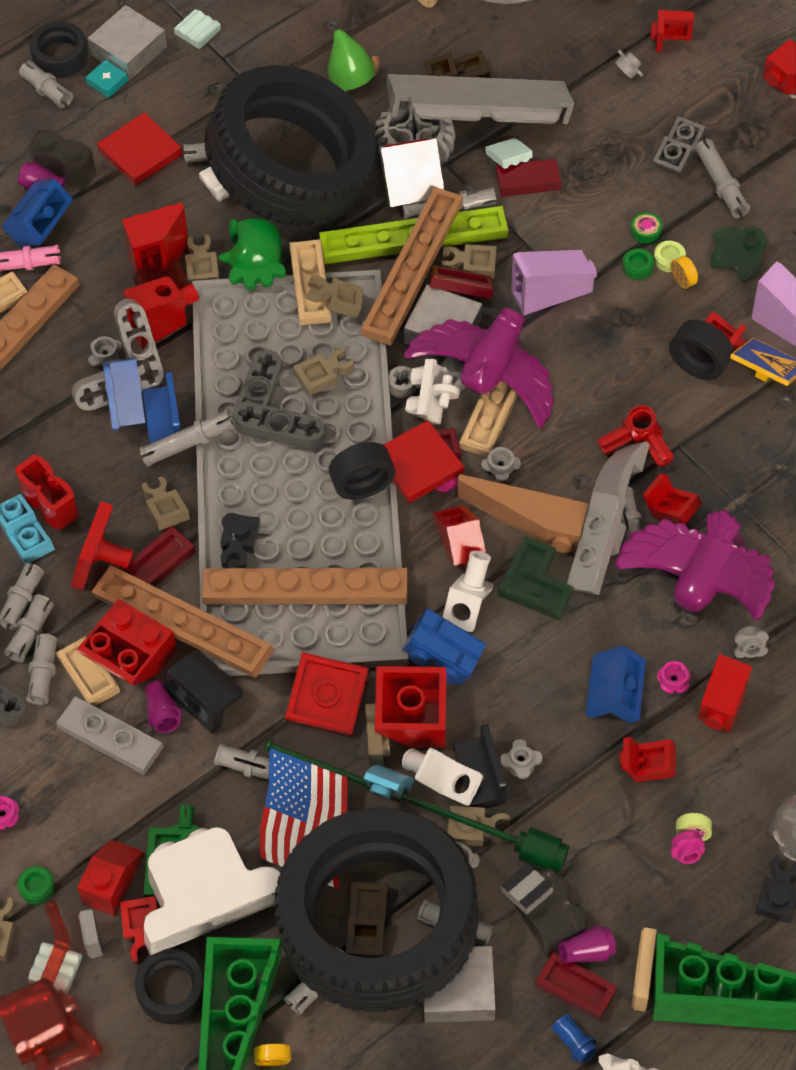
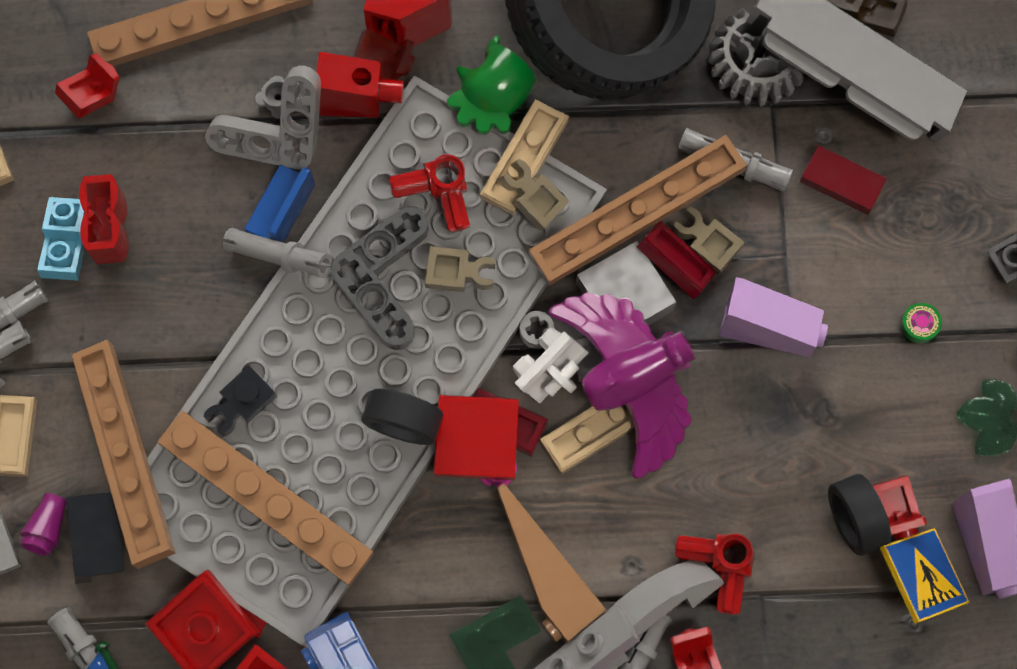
camera: 35 degrees right, 15 degrees up
(98, 548) = (101, 314): red tile -> none
(124, 392) = (249, 159): panel -> none
(129, 644) = (53, 441): red slope -> none
(161, 557) = (162, 361): dark red tile -> none
(164, 506) = (207, 310): dark tan plate -> none
(201, 262) = (439, 62): dark tan plate -> none
(264, 330) = (449, 194): none -> red axle
(391, 236) = (648, 157): lime plate -> none
(410, 170) = (718, 98): piece -> none
(459, 533) = (460, 545): red slope -> none
(469, 590) = (420, 617): white bracket -> none
(504, 456) = (568, 481): light grey plate -> none
(509, 152) = (843, 139): light aqua piece -> none
(638, 264) = (879, 359): green tile -> none
(666, 252) = (920, 373): yellowish green tile -> none
(684, 272) = (918, 405): yellow tile -> none

